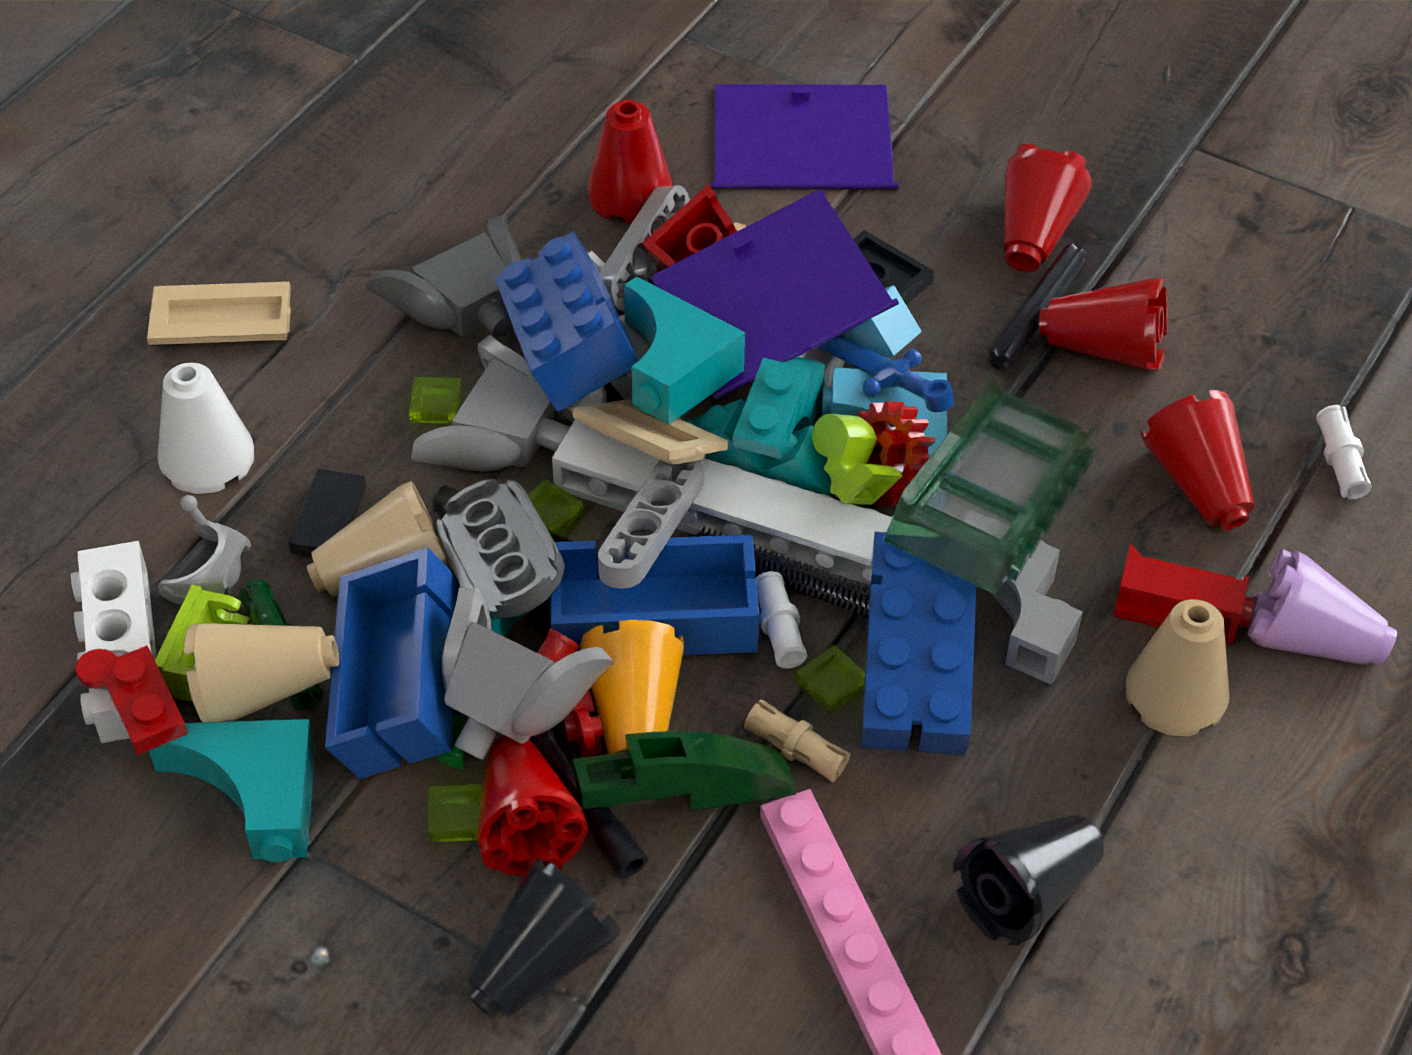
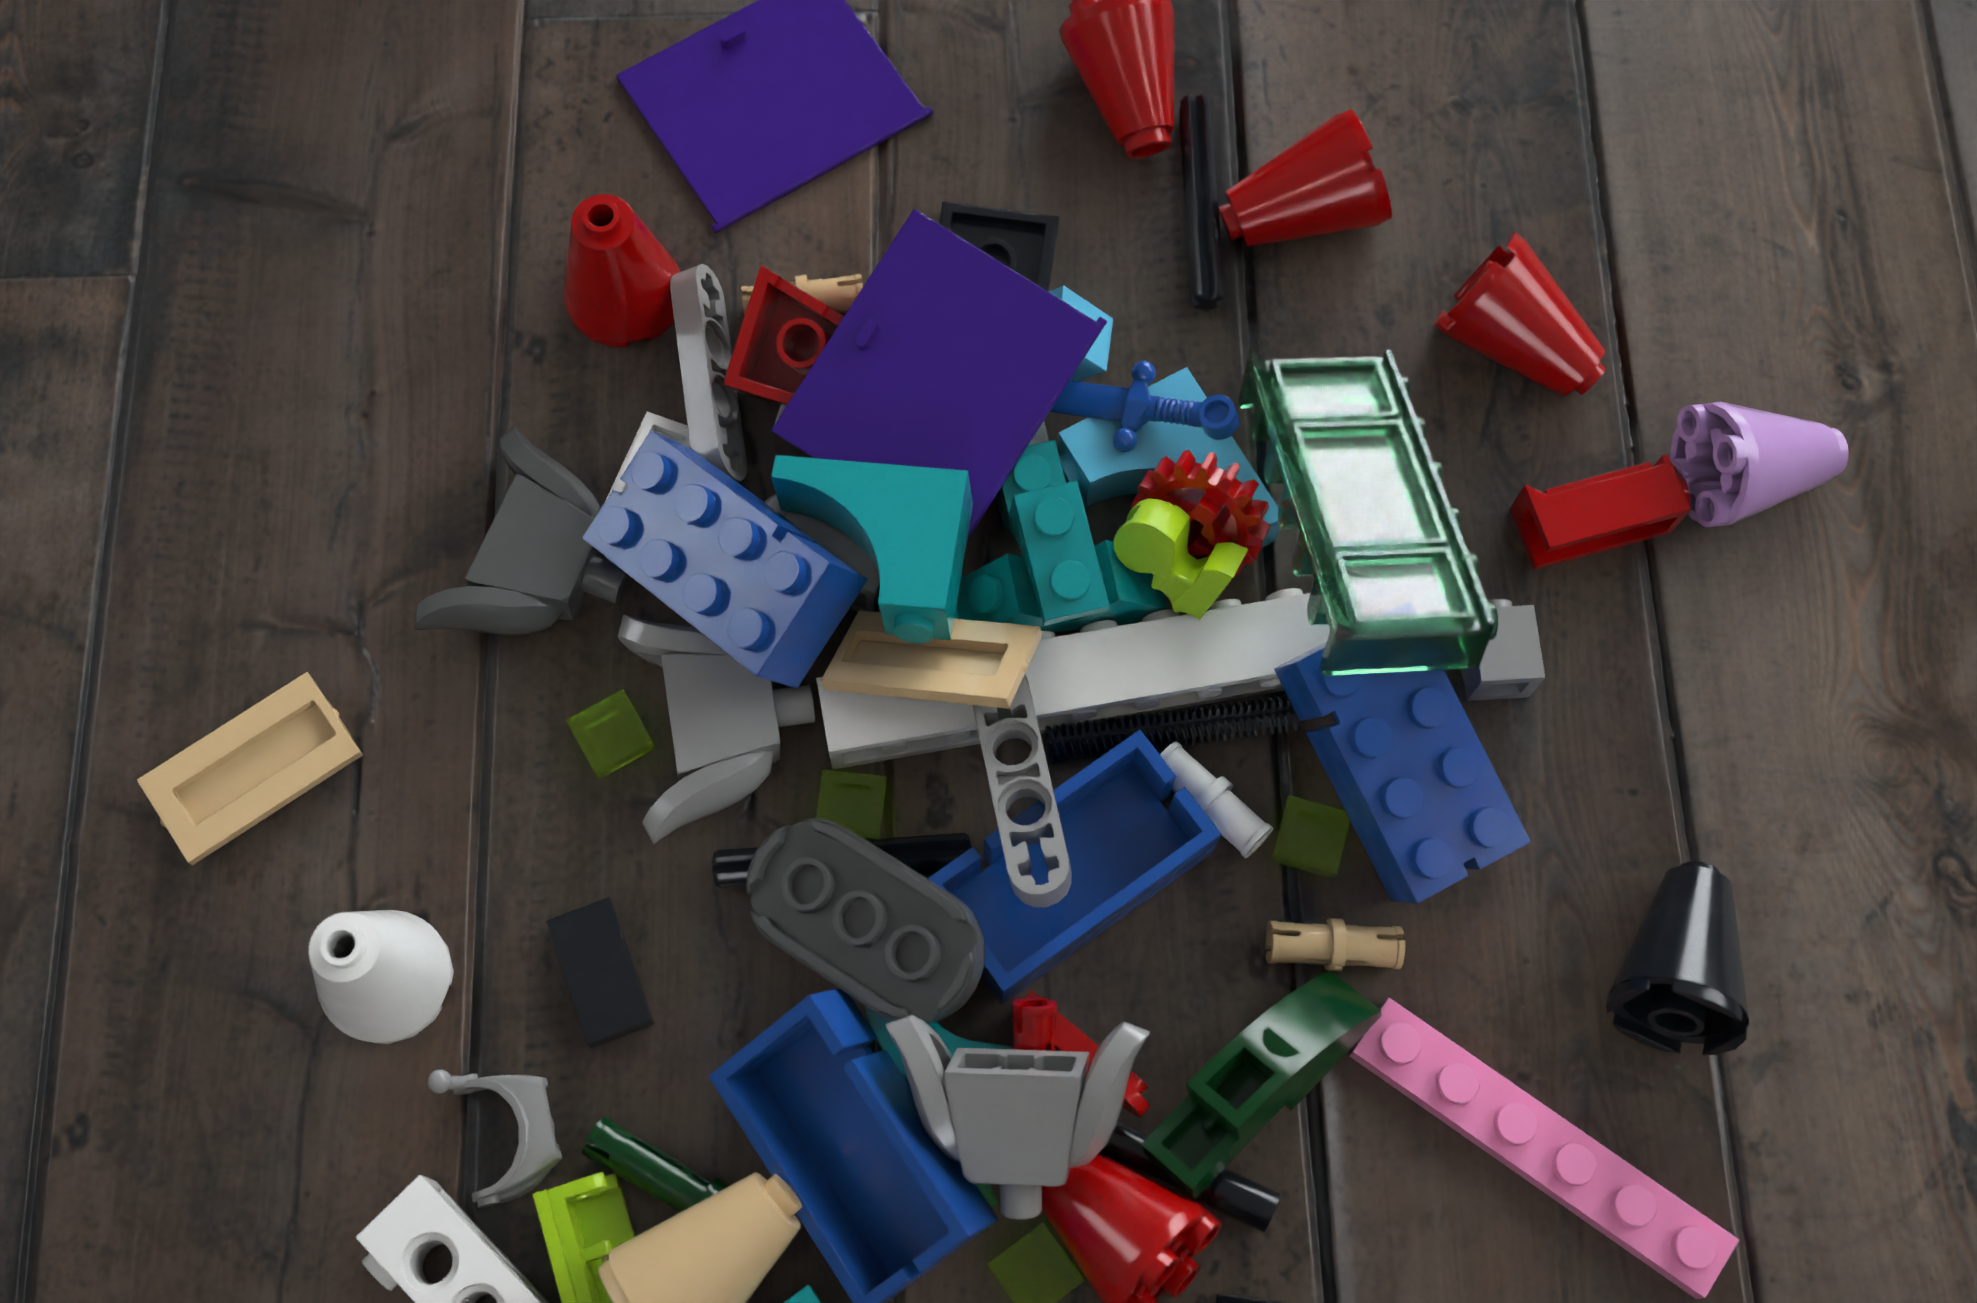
camera: 35 degrees left, 20 degrees up
(383, 532) = (713, 994): tan cone -> none
(641, 684) = (1136, 982): light orange cone -> none
(1182, 672) = (1668, 617): tan cone -> none
(1343, 452) = (1639, 220): white pin -> none

